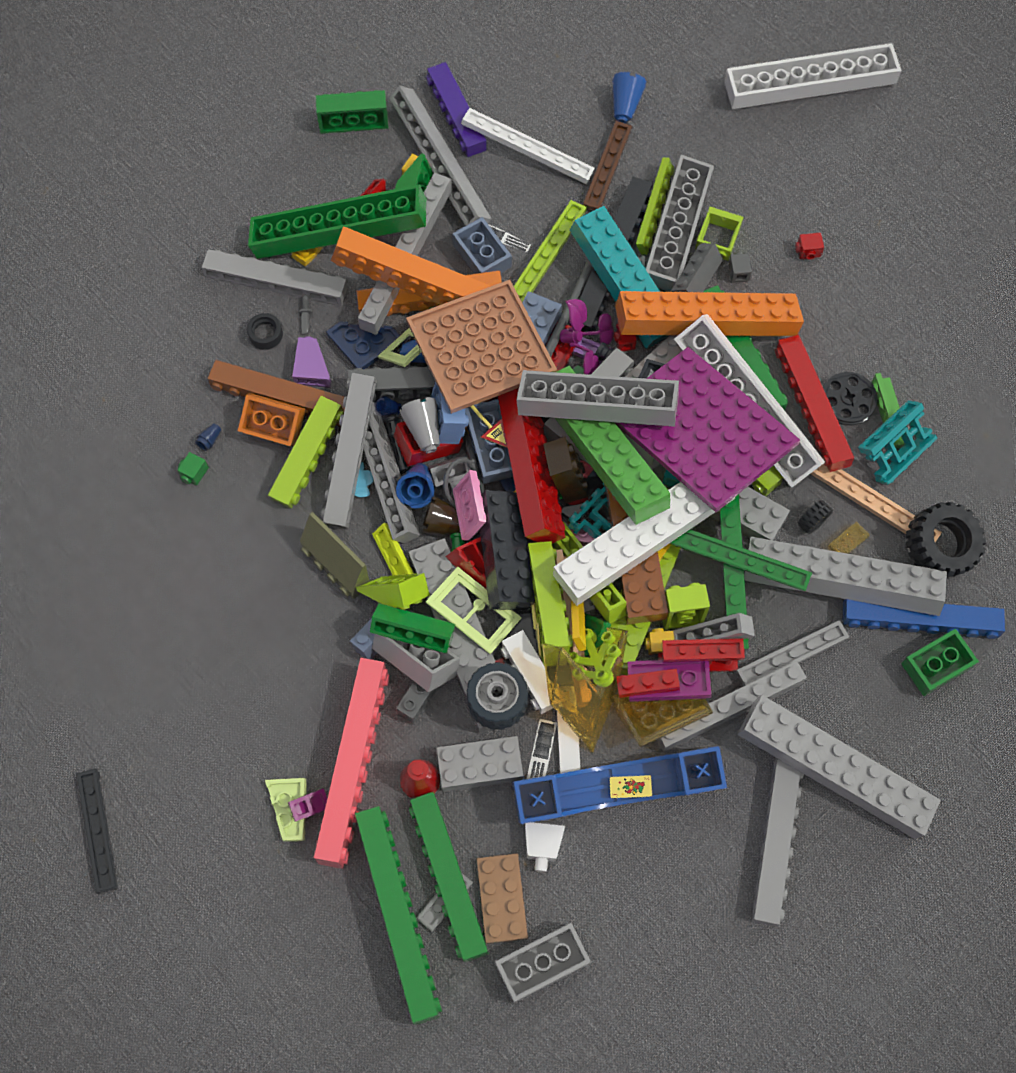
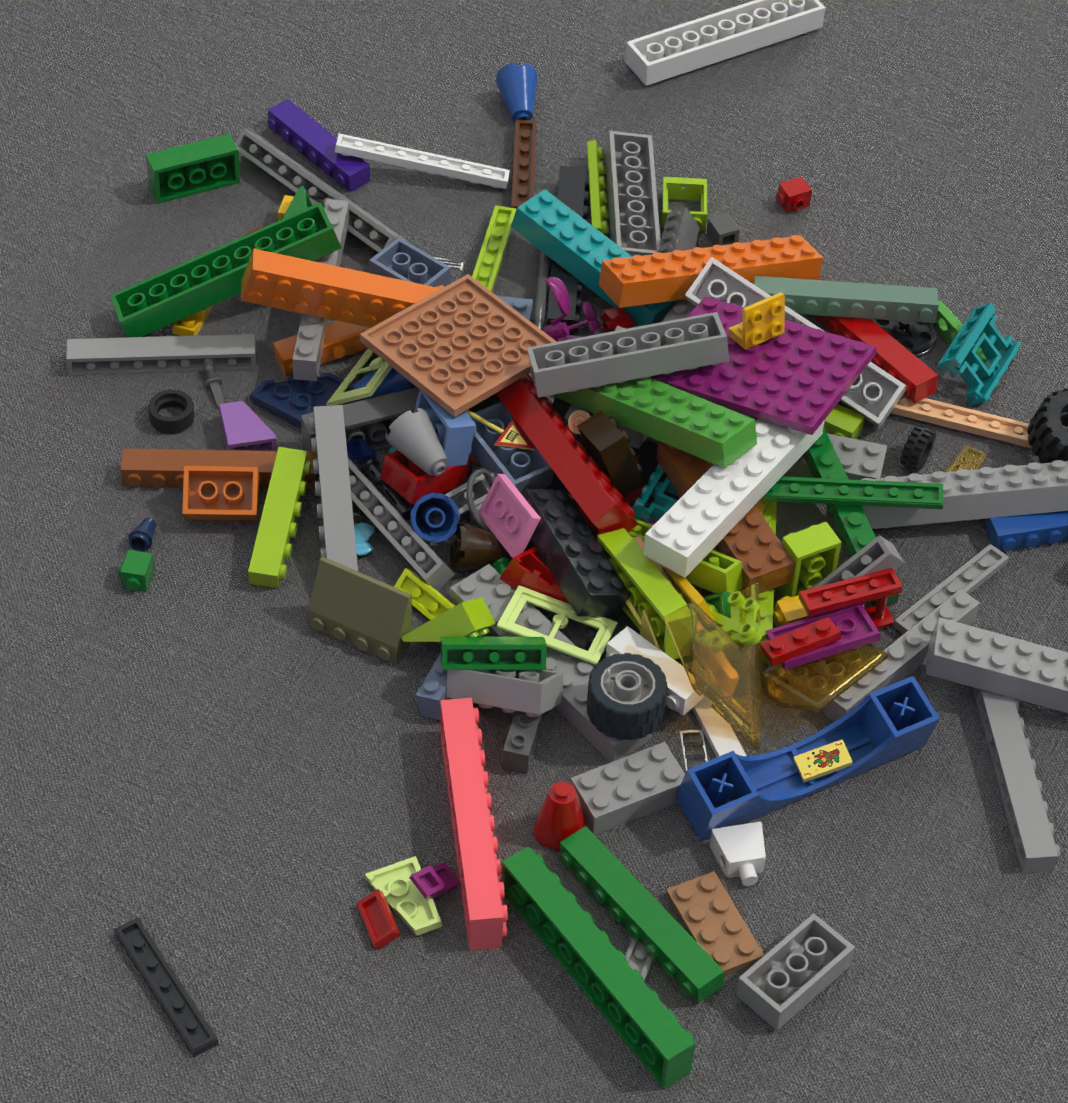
camera: 20 degrees left, 20 degrees down
(261, 821) = (378, 919): none -> red tile
(552, 433) = (576, 418): none -> tan tile
(713, 396) = (760, 322): none -> yellow bracket
(808, 366) = (854, 299): none -> sand green brick

